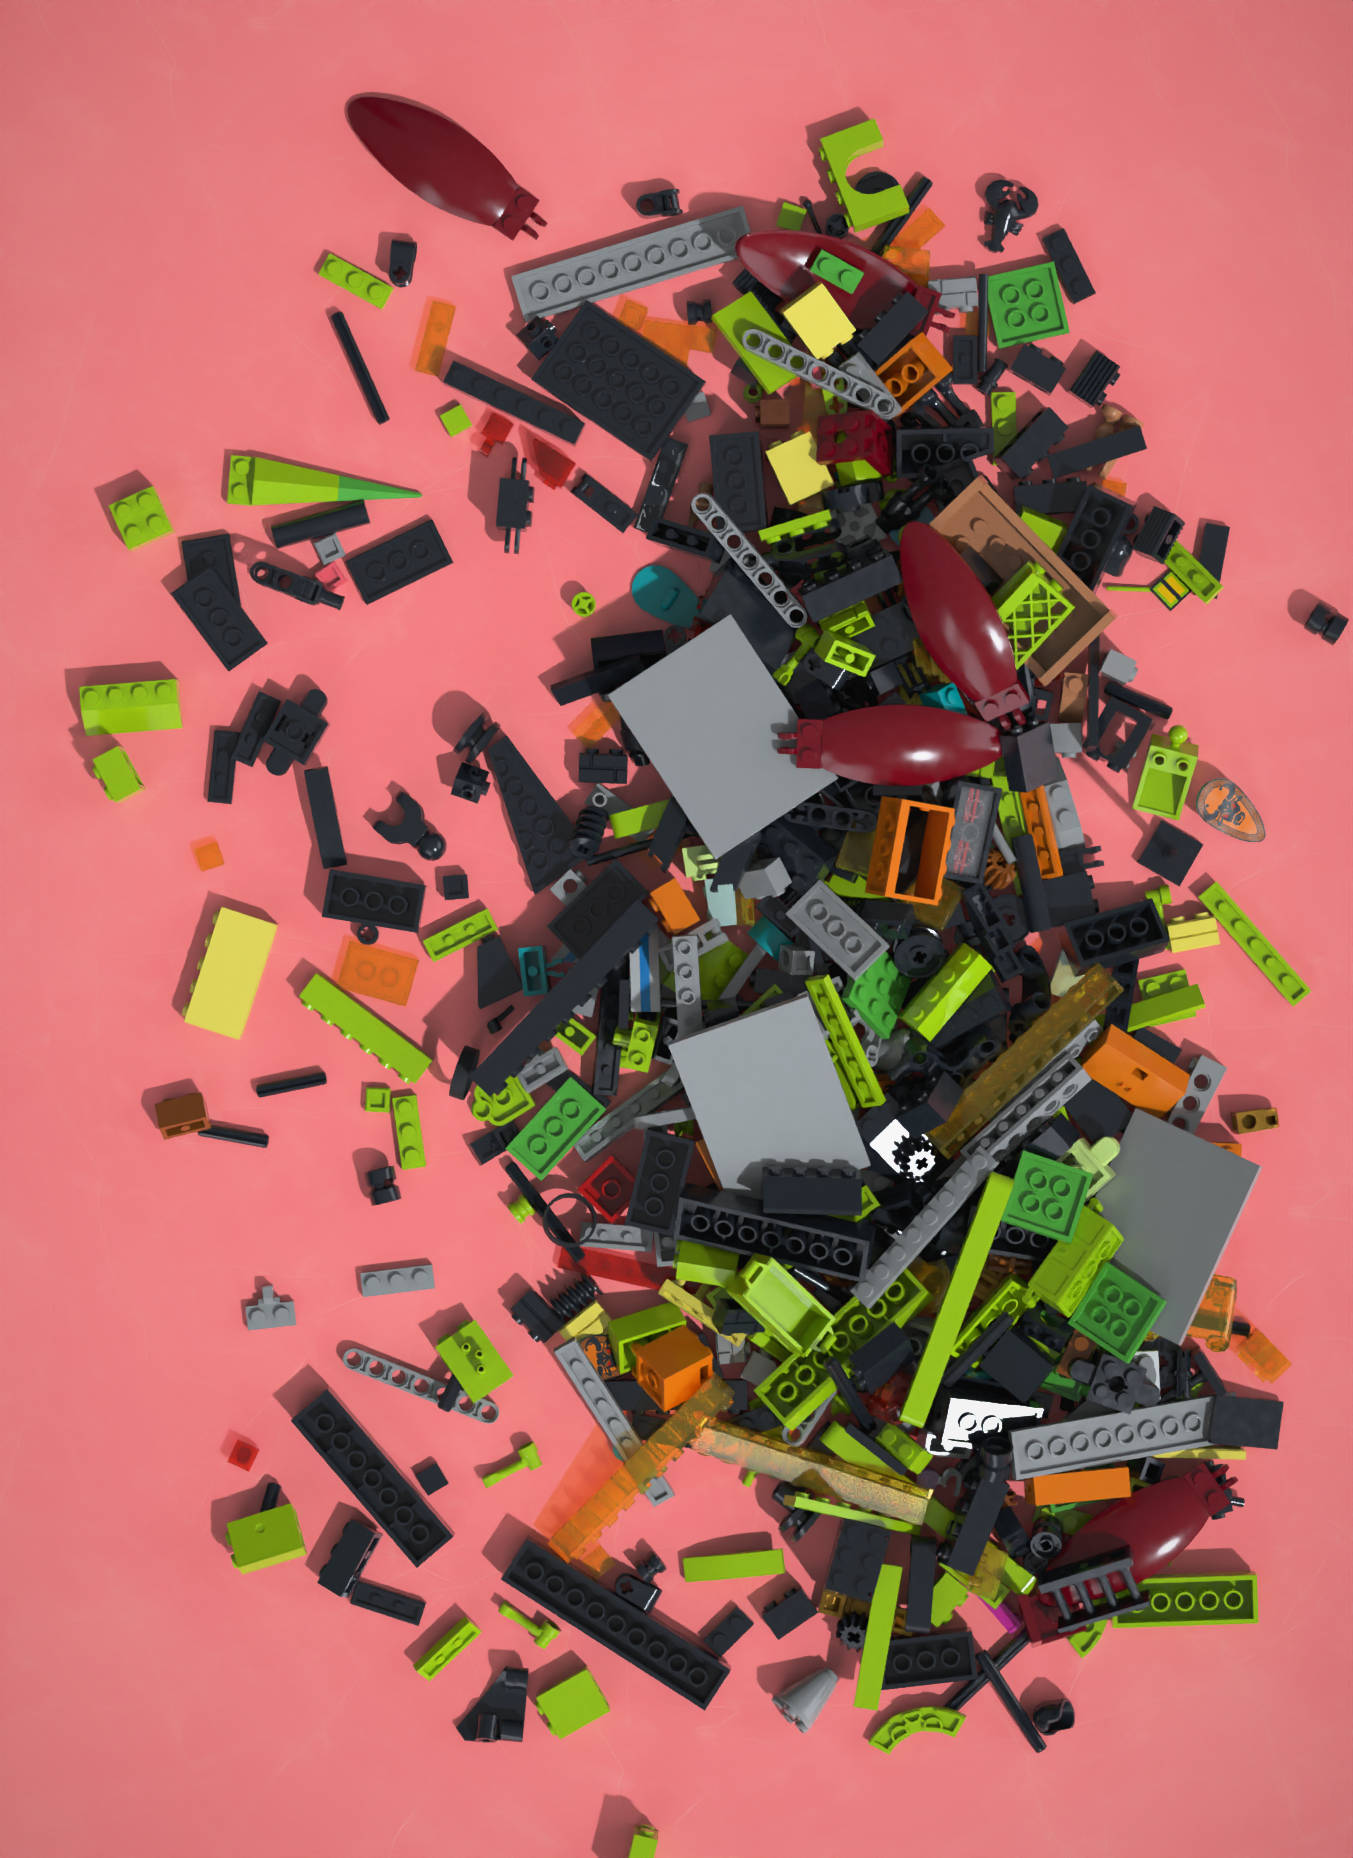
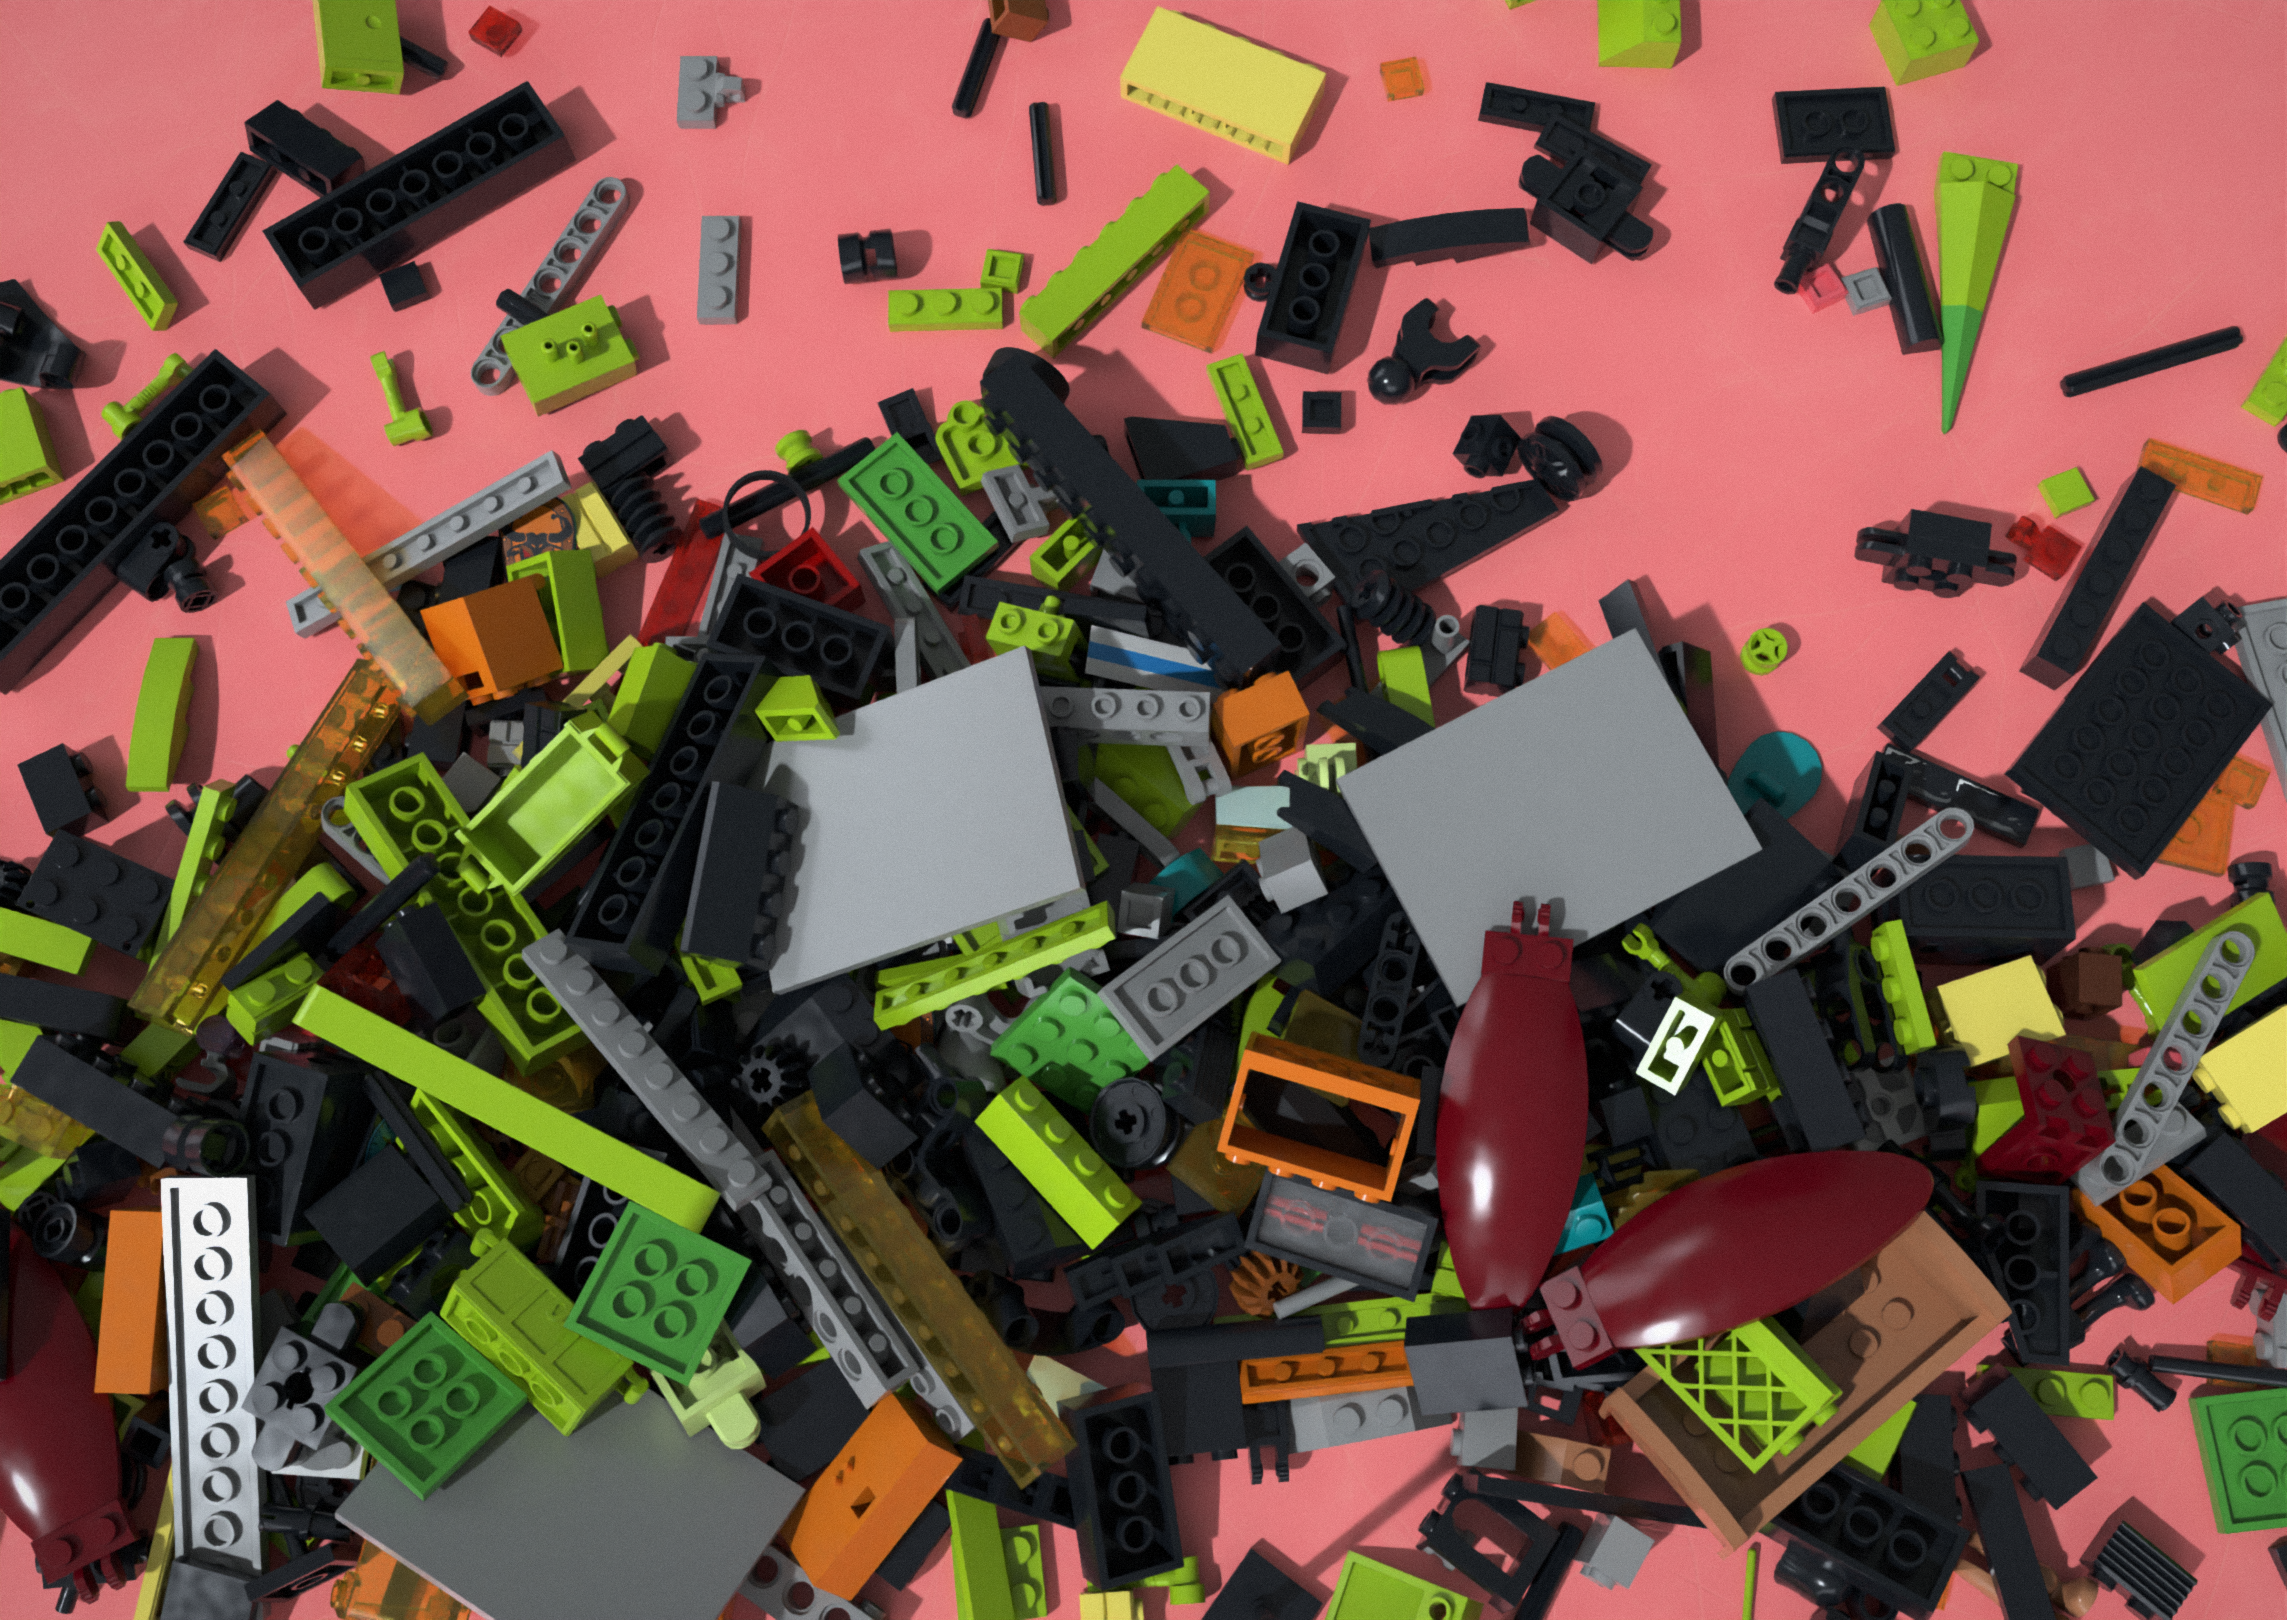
camera: 95 degrees right, 15 degrees down
(219, 618) = (1766, 123): black tile -> none
(399, 562) = (1841, 388): black tile -> none
(552, 465) = (1994, 626): clear red slope -> none
(632, 1084) = (972, 639): none -> clear red plate
(703, 339) = (2201, 890): clear yellow tile -> none
(708, 1173) = (797, 711): none -> lime slope
(728, 1631) = (61, 698): black plate -> none
(965, 359) = (2171, 1334): black plate -> none
(1037, 368) = (2156, 1465): black brick -> none

